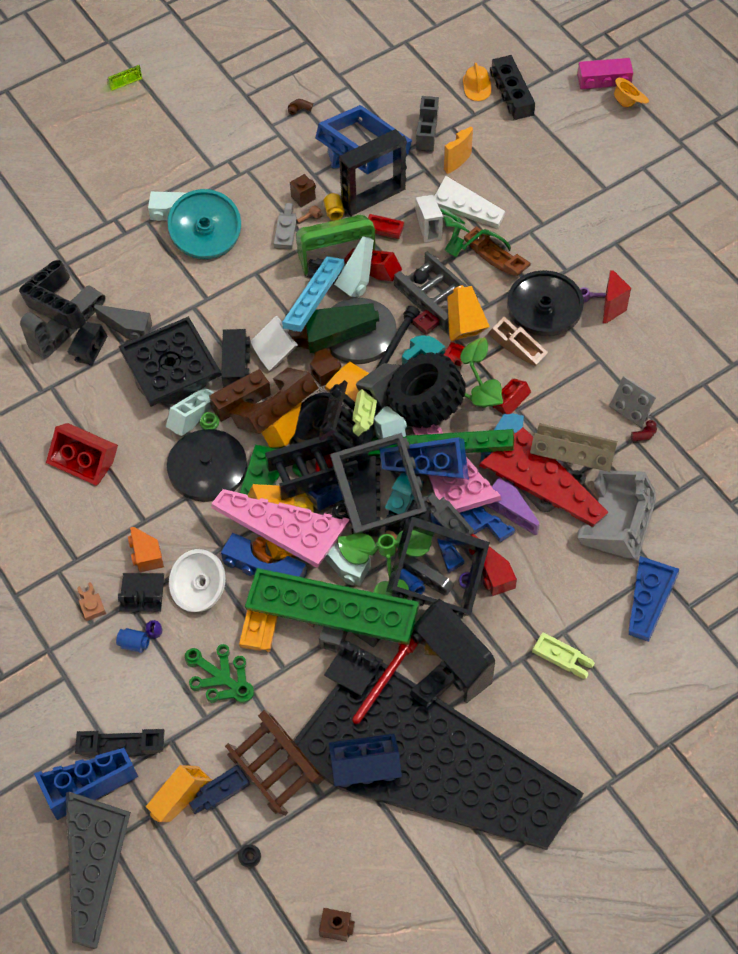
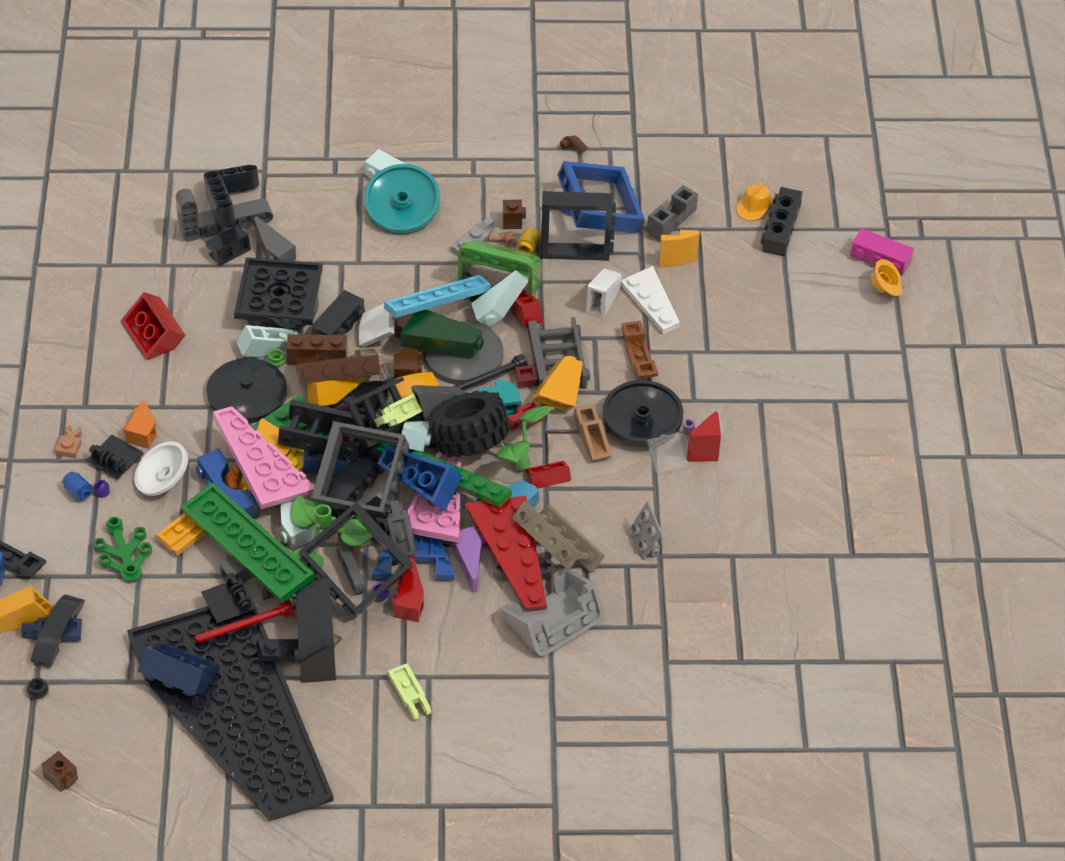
camera: 30 degrees right, 10 degrees down
(124, 78) = (439, 45): clear neon green slope -> none
(223, 788) = (54, 629): none -> black slope
(295, 757) = (127, 635): reddish brown fence -> none
(387, 226) = (560, 280): red plate -> none
(401, 495) = (375, 496): teal brick -> none
(414, 583) = (333, 567): blue cone -> none
(420, 276) = (548, 334): black hinge -> none
(456, 243) = (609, 324): green plant -> none
(590, 326) = (667, 453): none -> clear piece
(646, 434) = (640, 566): dark red arm -> none
(651, 593) = (532, 685): blue wing -> none

